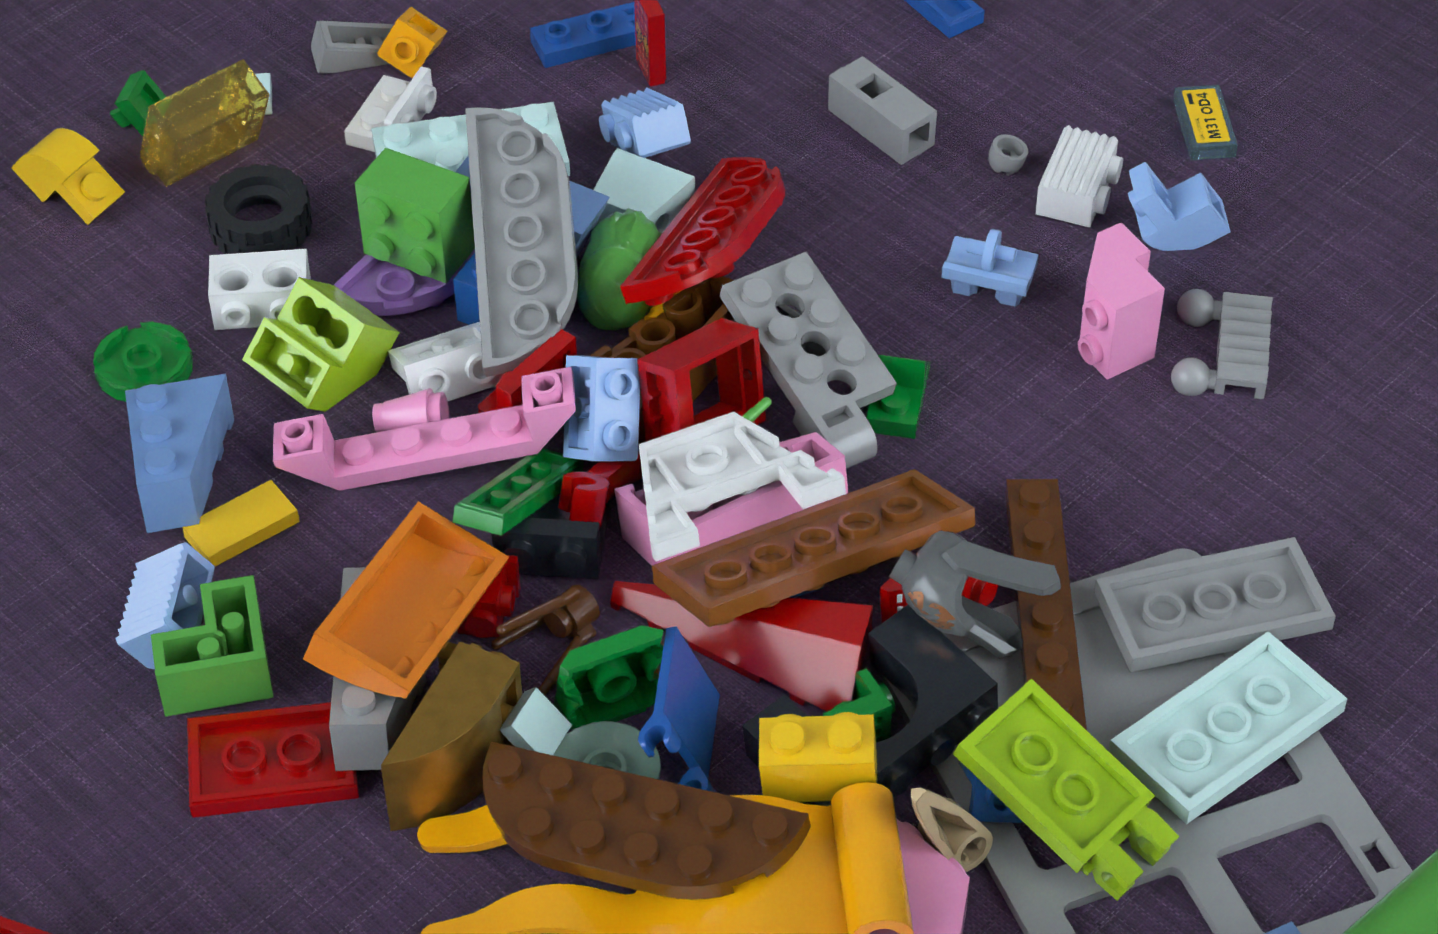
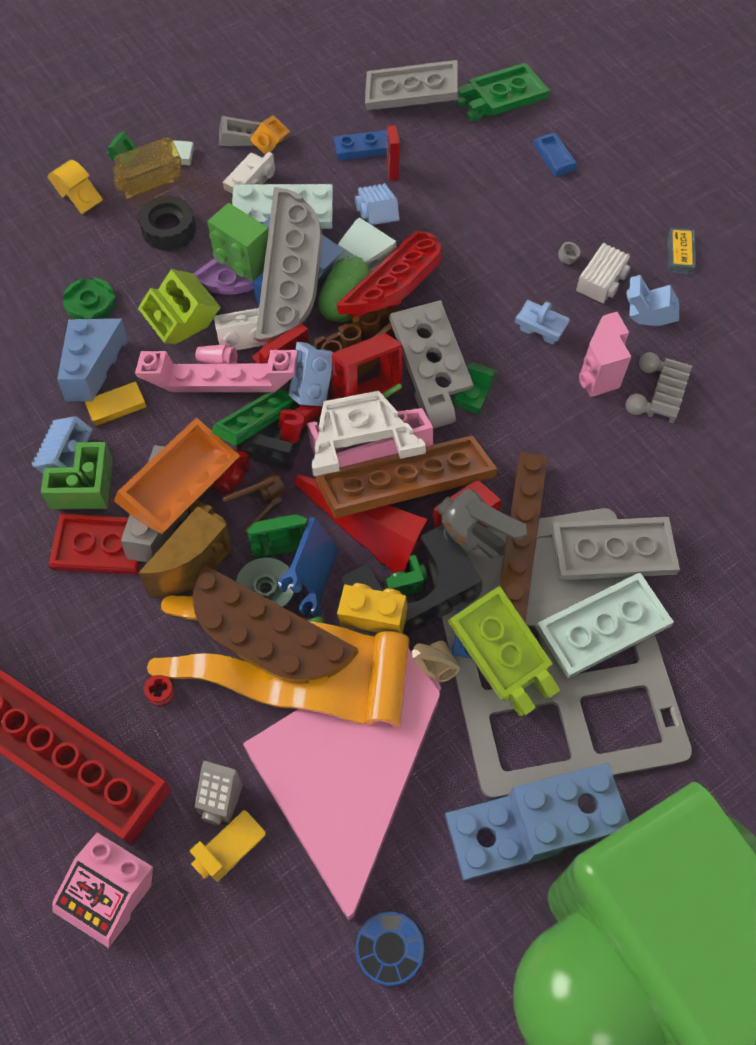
camera: 10 degrees right, 15 degrees up
(252, 285) = (151, 265): white brick -> none
(535, 723) = (233, 556): light aqua tile -> none
(882, 110) = (507, 215): light grey brick -> none

